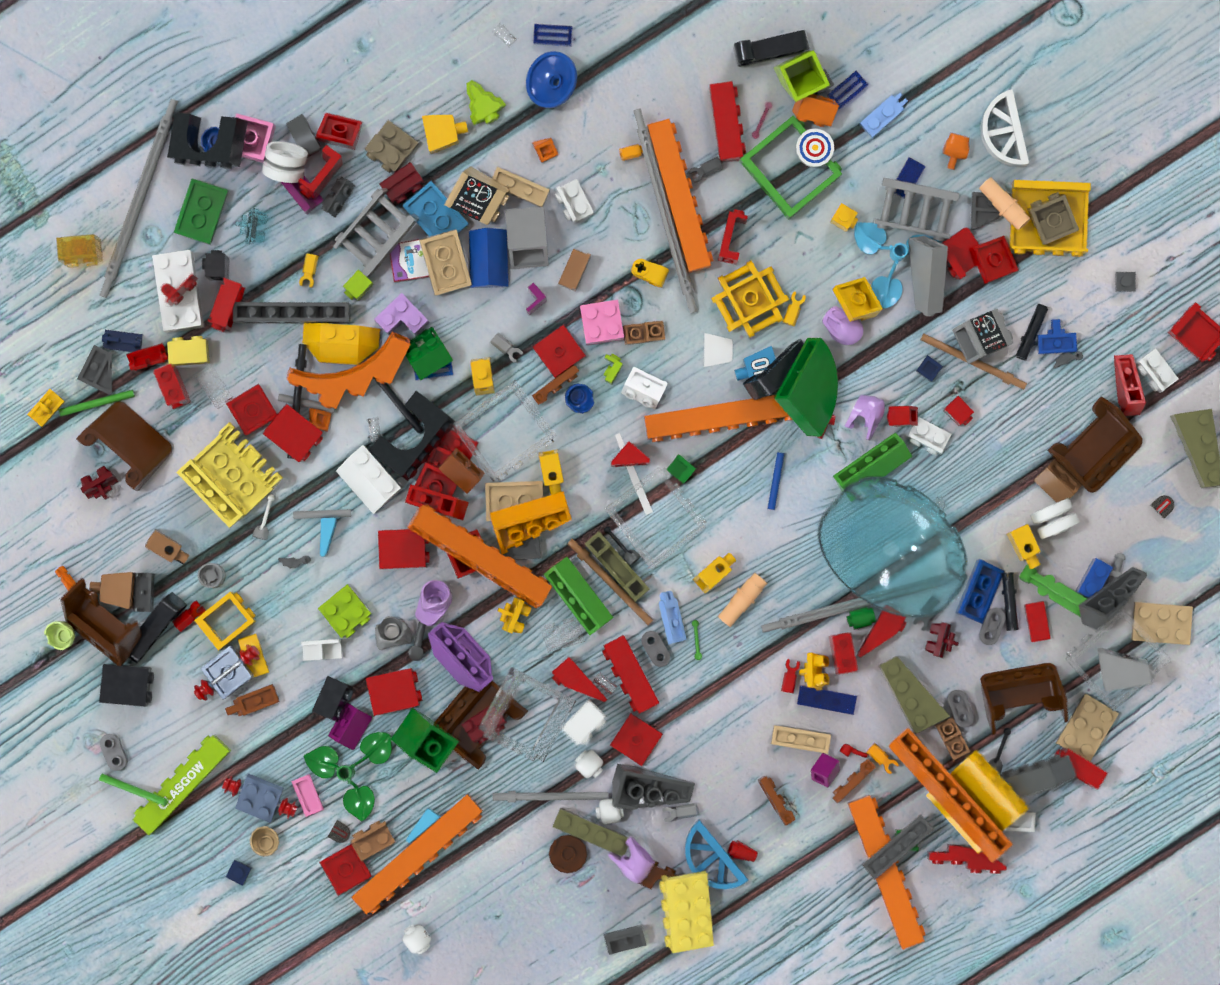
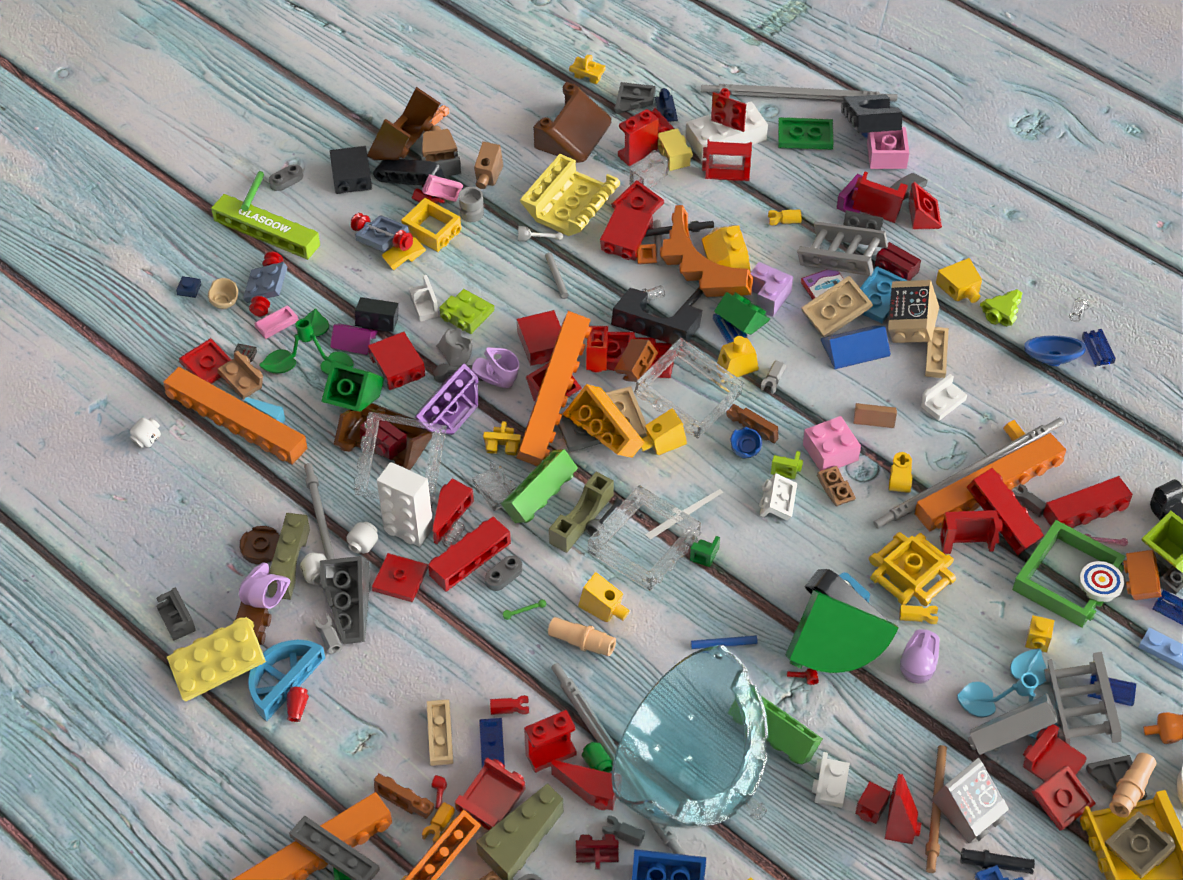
camera: 75 degrees right, 35 degrees down
(60, 635) = (388, 112): yellowish green hair -> none
(79, 250) = (735, 58): clear yellow brick -> none
(97, 402) = (606, 106): bright green bar -> none
(99, 486) = (529, 114): dark red hips -> none
(185, 599) = (442, 188): none -> bright pink tile
(216, 265) = (762, 146): black brick -> none
(254, 218) = (808, 165): clear light blue hips -> none
(254, 701) = (359, 261): dark orange hinge -> none
(284, 162) = (879, 166): white wheel -> none
(292, 312) = (740, 206): dark grey brick -> none
(294, 563) = (503, 265): dark grey piece -> none
(326, 534) = (536, 279): medium azure slope -> none
(357, 286) = (785, 251): lime brick -> none
(368, 479) = (602, 298): white slope -> none
(391, 147) = (928, 248): dark tan plate -> none
(526, 237) = (888, 365): light grey slope -> none
(539, 297) = (830, 383): magenta panel -> none
(545, 149) = (983, 365): orange slope -> none
(559, 351) = (790, 420): red plate -> none
(584, 555) = (568, 508): medium nougat bar -> none
(630, 456) = (701, 492): red slope -> none
(671, 618) = (540, 576): light blue hinge -> none
(713, 418) = (768, 560): orange brick -> none
(717, 350) = (844, 557): white sticker -> none
(720, 199) = (1016, 523): none -> red brick
(776, 800) = (362, 722): dark orange hinge -> none
(813, 671) = (514, 723): yellow hips -> none
(825, 770) = (410, 764): magenta panel -> none
(858, 299) = (955, 663): yellow plate -> none
(871, 409) = (834, 709): lavender helmet -> none
(872, 712) = (491, 794): none -> red panel
(902, 416) = (844, 743): red brick -> none
(929, 368) = (909, 761): dark blue plate -> none
(979, 394) = (902, 814): none -> red wedge

